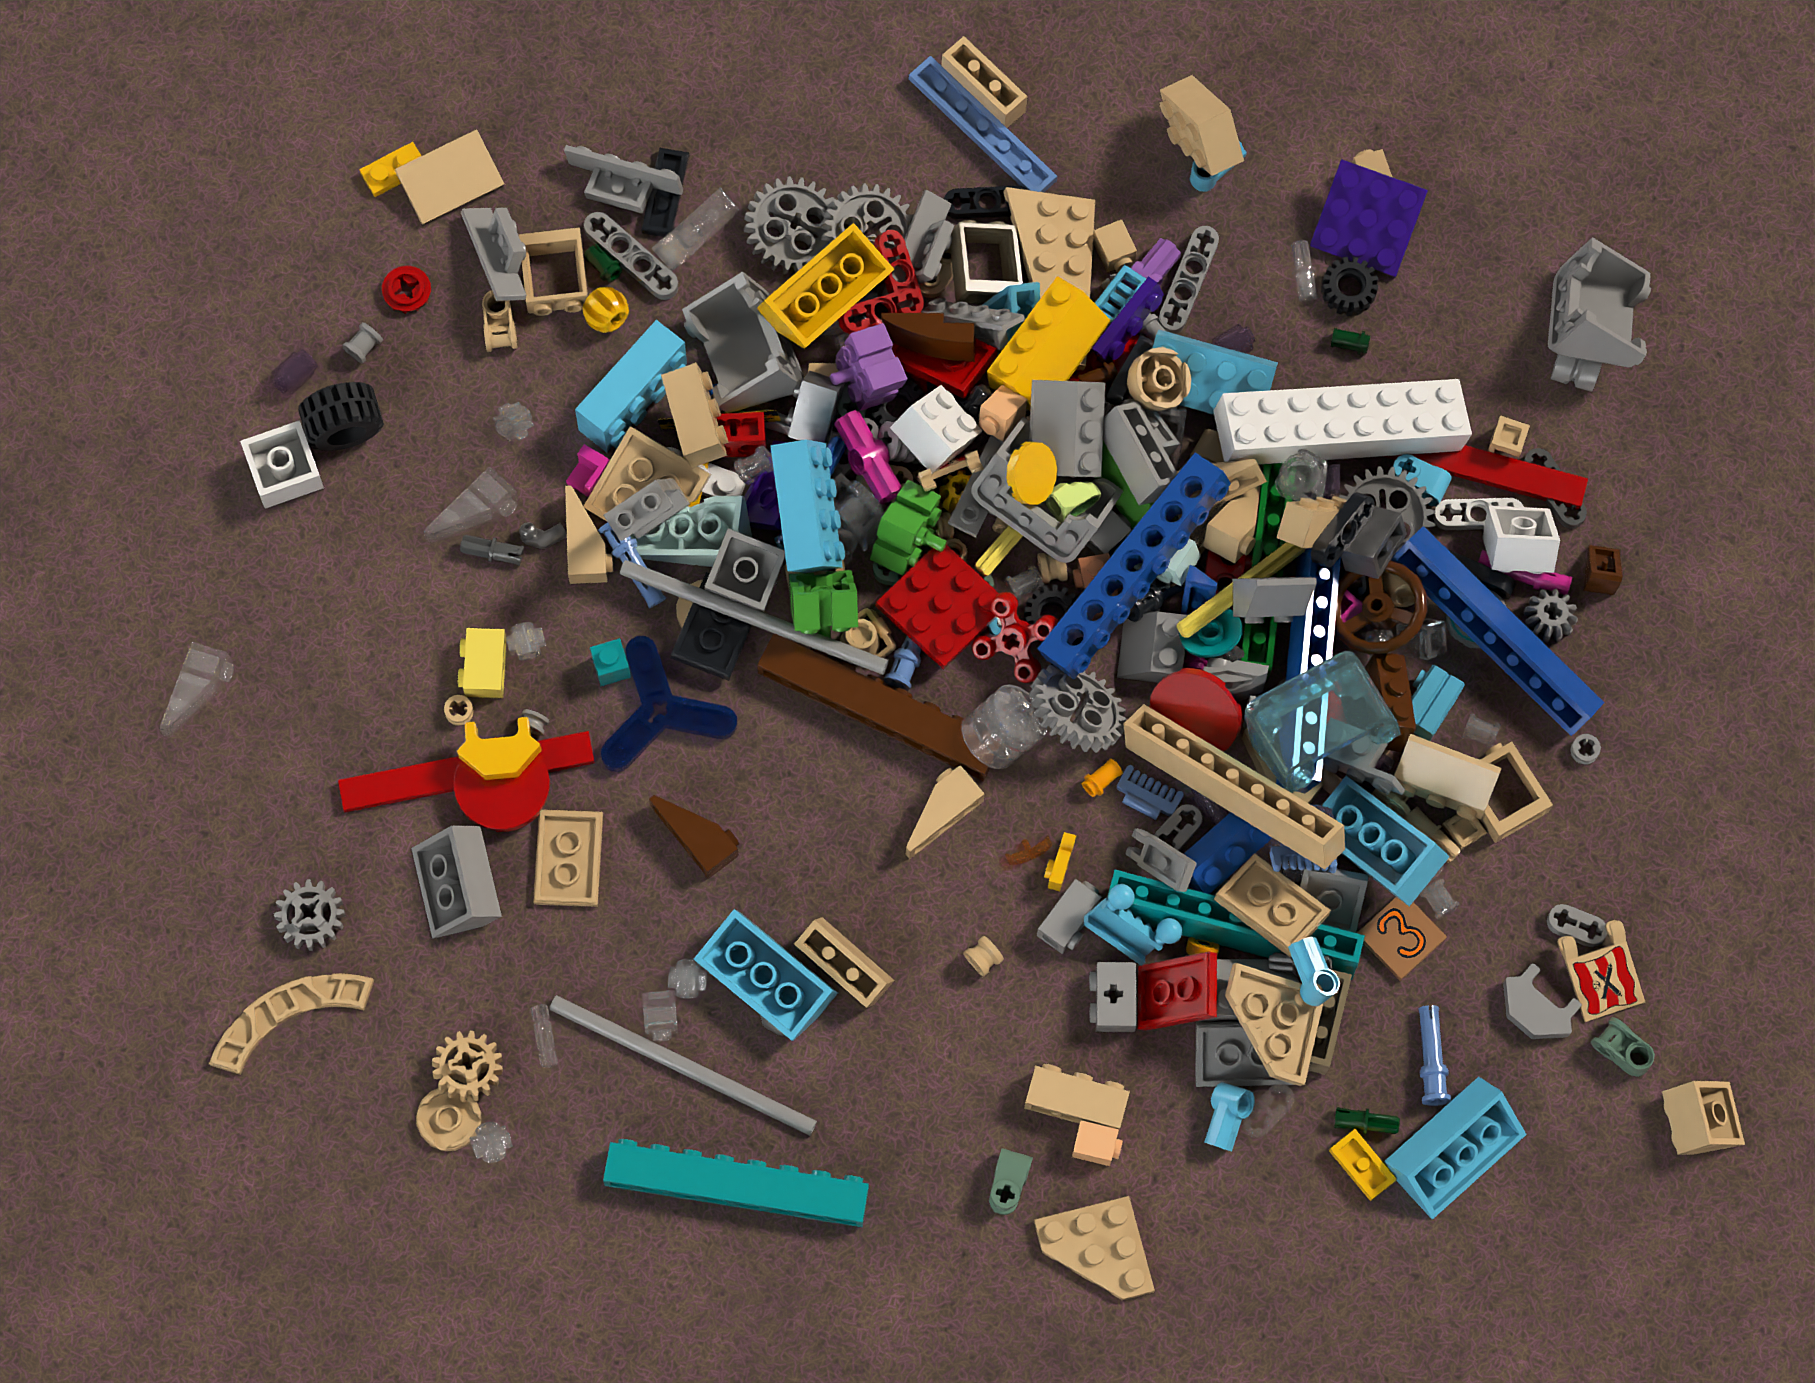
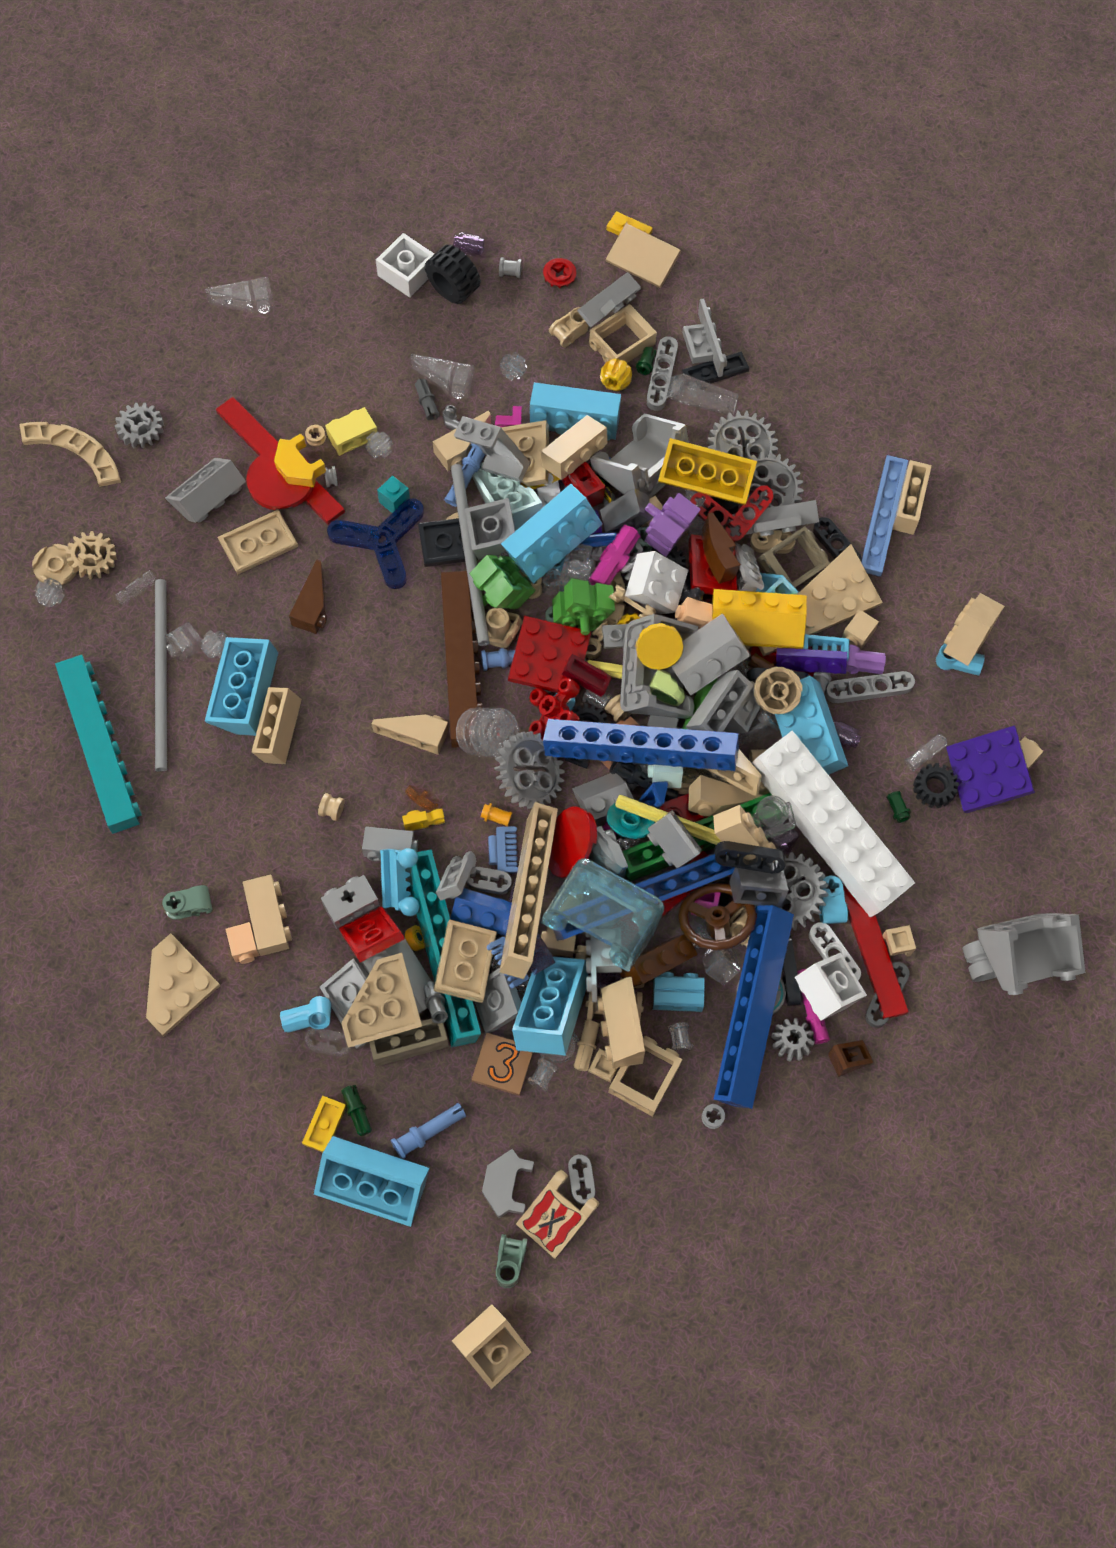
camera: 60 degrees right, 5 degrees down
(998, 576) = (587, 675): none -> dark red tile
(1313, 970) = (428, 1004): medium azure piece -> none

